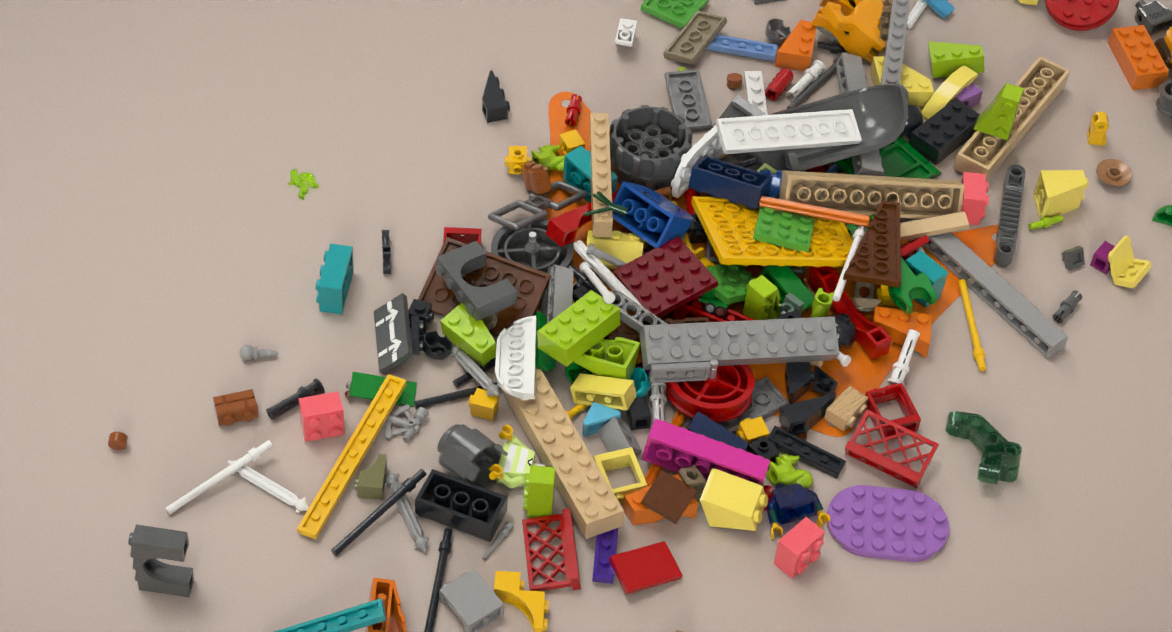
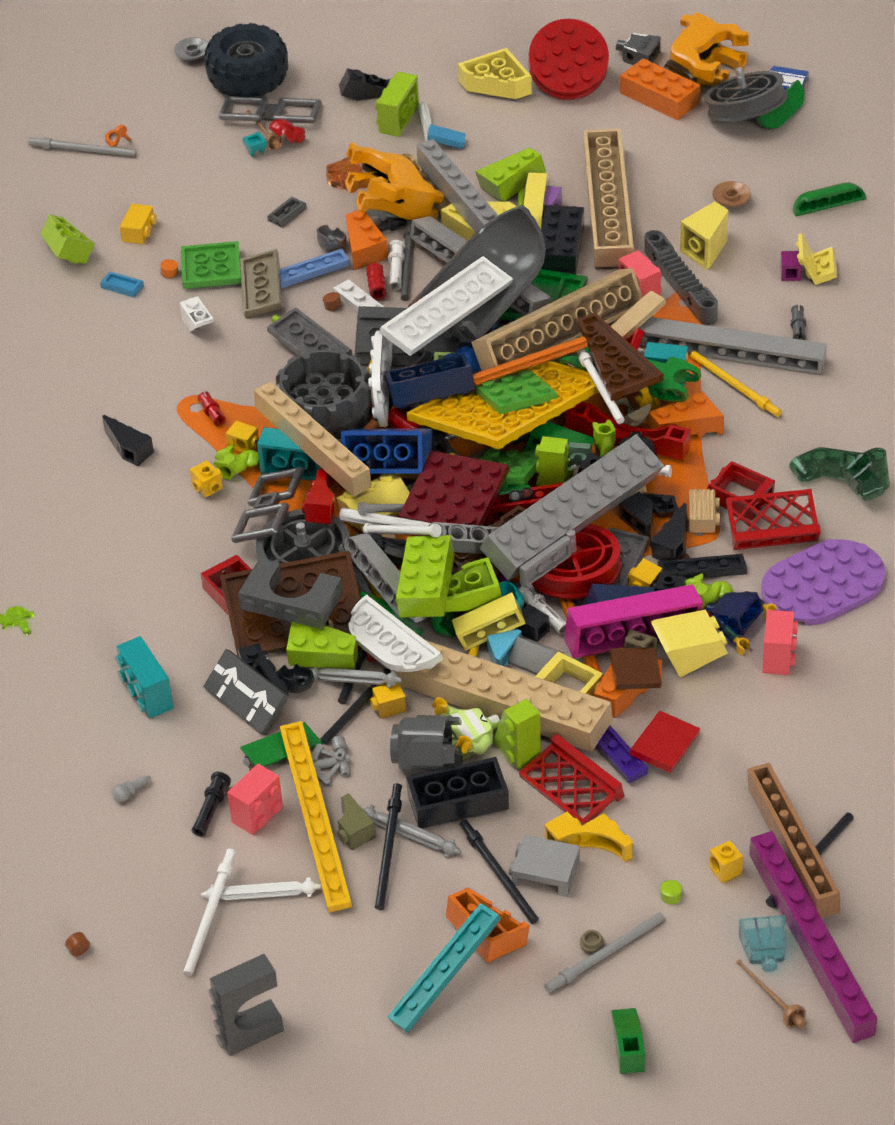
camera: 30 degrees left, 5 degrees down
(235, 407) = (161, 845): dark orange brick -> none
(386, 252) = (165, 626): black bar -> none
(502, 534) = (513, 795): light grey piece -> none
(536, 177) = (243, 482): dark orange brick -> none
(613, 207) = (354, 453): dark green plant -> none
(901, 368) = (716, 449): white pin -> none
(1001, 112) = (607, 191): lime wedge -> none
(1045, 222) = (714, 266): lime bar -> none
(1073, 257) = (765, 281): dark grey tile -> none
(1097, 129) = (685, 165): yellow leg -> none

